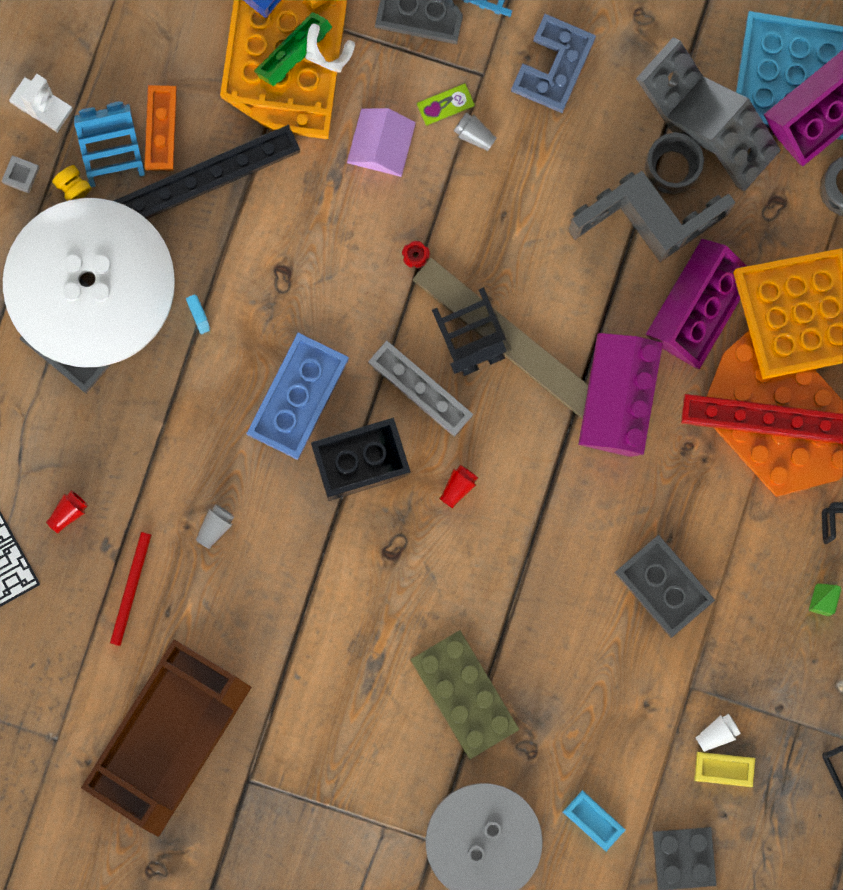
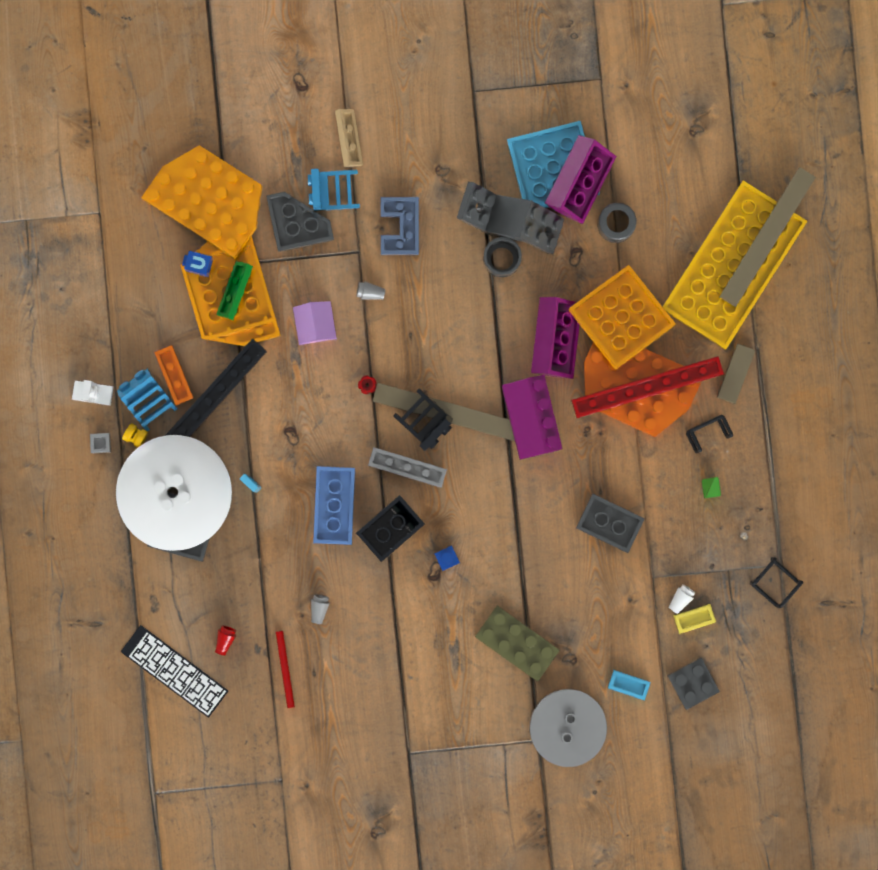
camera: 20 degrees left, 5 degrees up
(166, 738) = (347, 750): reddish brown slope -> none
(314, 55) = (249, 289): white cap -> none
(420, 534) = (447, 558): none -> blue brick
(445, 104) = (344, 281): lime sticker -> none
(458, 485) = (457, 517): red cone -> none
(650, 215) = (501, 297): dark grey bracket -> none

